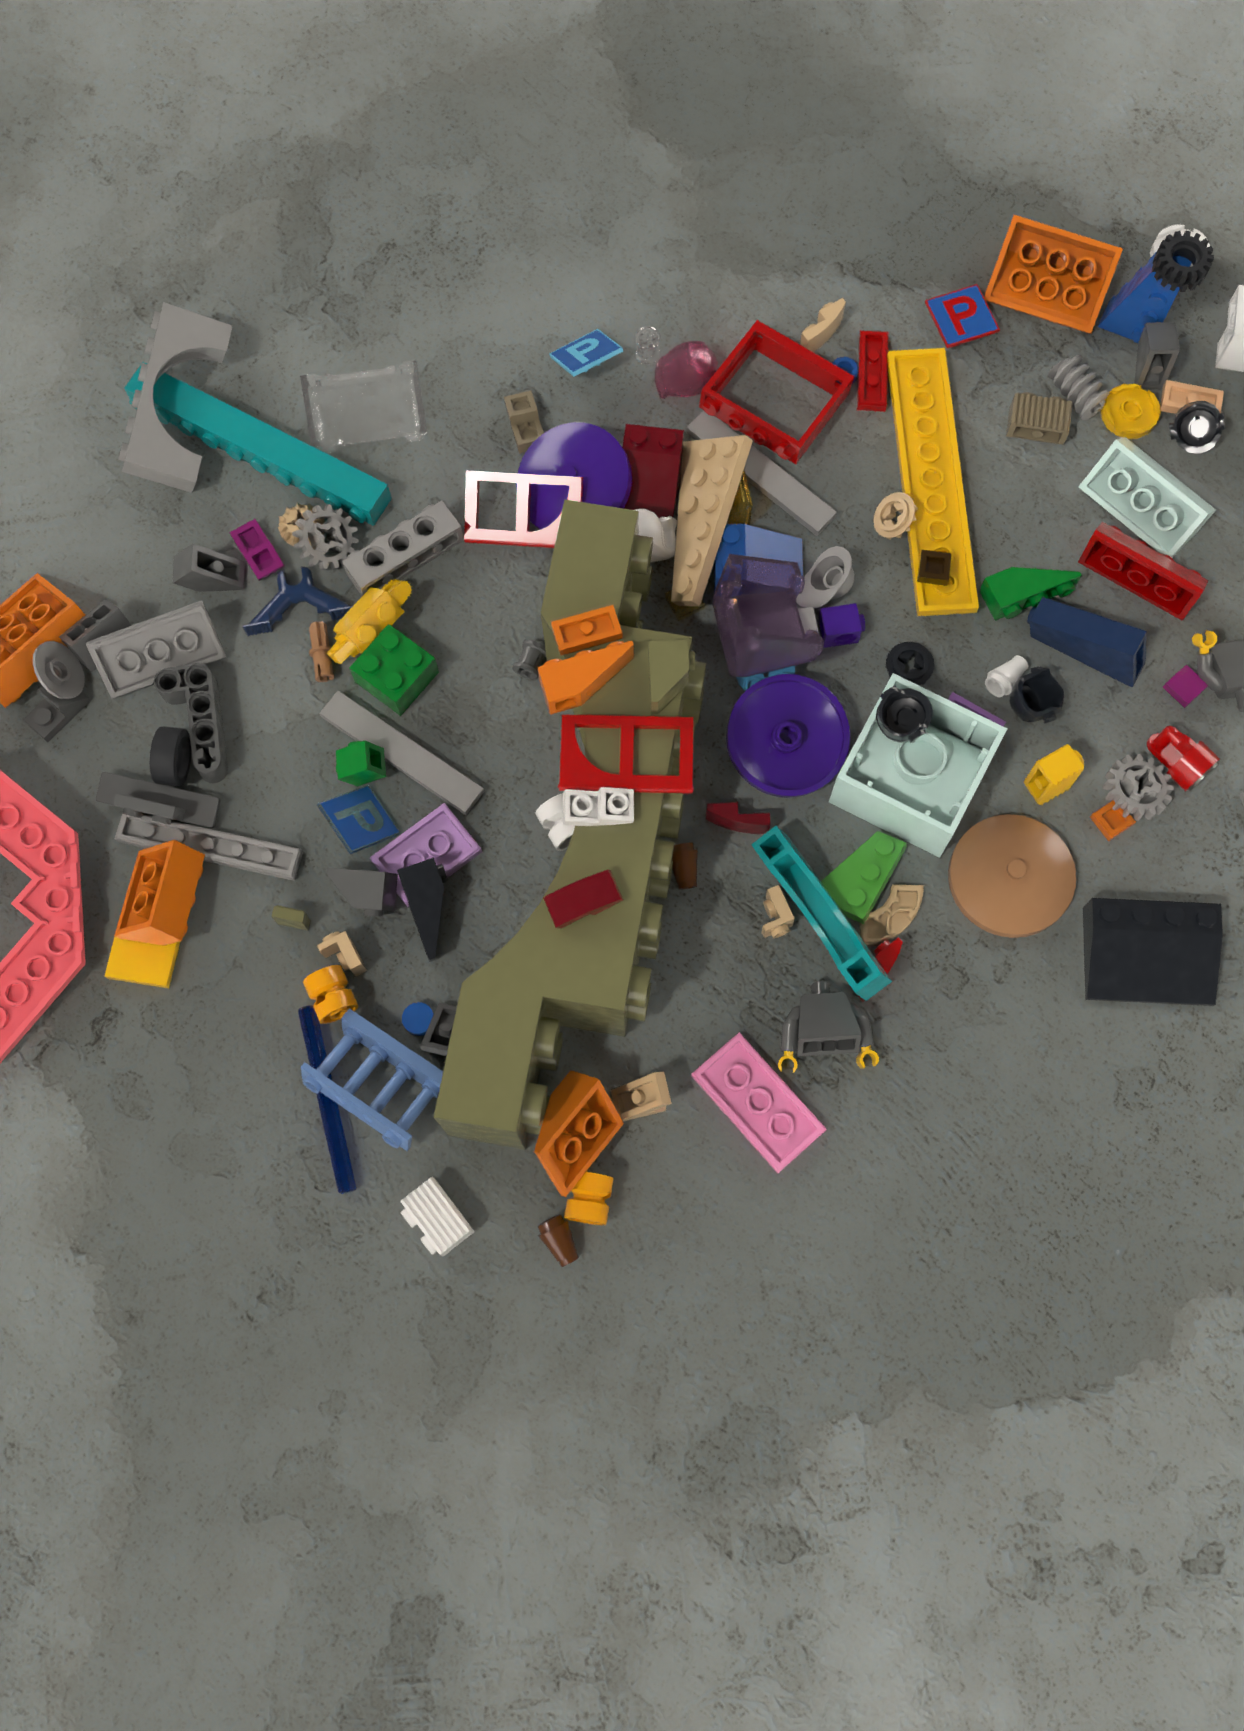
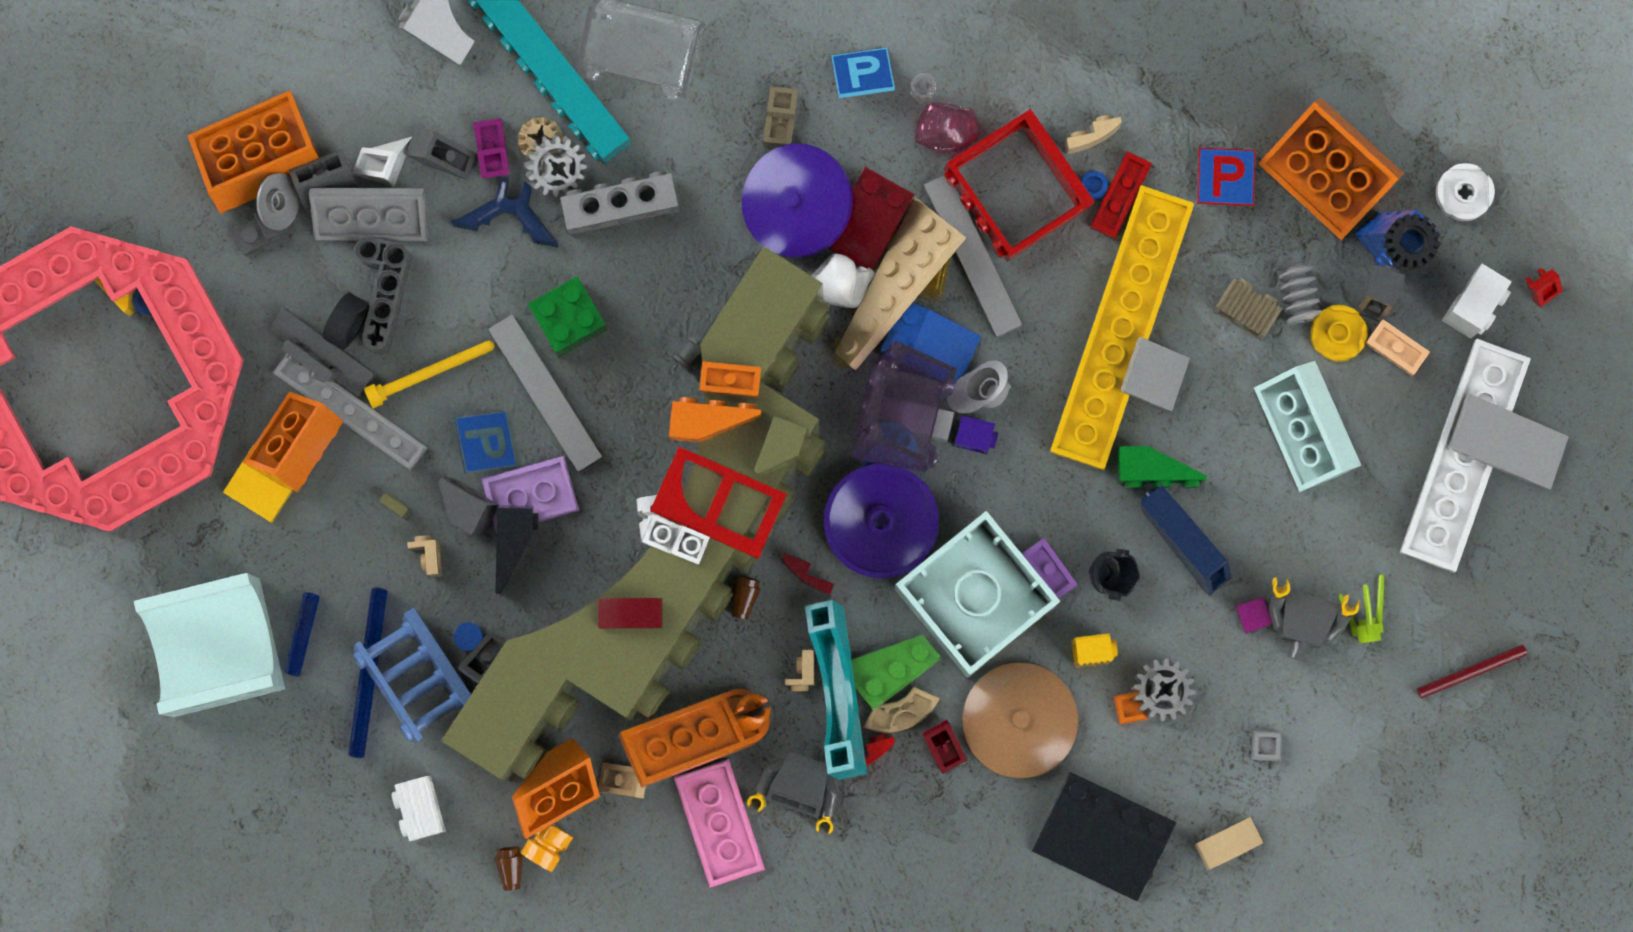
camera: 25 degrees right, 10 degrees up
(144, 1133) = (211, 644): none -> light aqua piece
(152, 600) = (382, 162): none -> white slope
(230, 817) = (379, 393): none -> yellow piece
(241, 1087) = (301, 634): none -> clear blue axle
(320, 646) = (511, 271): medium nougat axle -> none
(329, 991) = (403, 587): light orange wheel -> none
(360, 763) = (505, 392): green brick -> none
(368, 618) = (563, 261): yellow hinge -> none
(522, 536) = (752, 244): window -> none
(696, 1017) = (695, 735): none -> orange plate
(887, 511) = (1068, 342): tan gear -> none
(903, 653) = (1034, 496): black gear -> none
(903, 714) = (974, 555): black cap -> none
(934, 567) = (1079, 418): dark brown plate -> none
(950, 928) = (944, 746): none -> dark red slope
(983, 506) = (1154, 374): none -> light grey tile
(1003, 678) = (1099, 541): white cone -> none
(1143, 570) = (1268, 494): red slope -> none
(1186, 760) = (1214, 688): red piece -> none
(1197, 426) = (1384, 378): black cap -> none

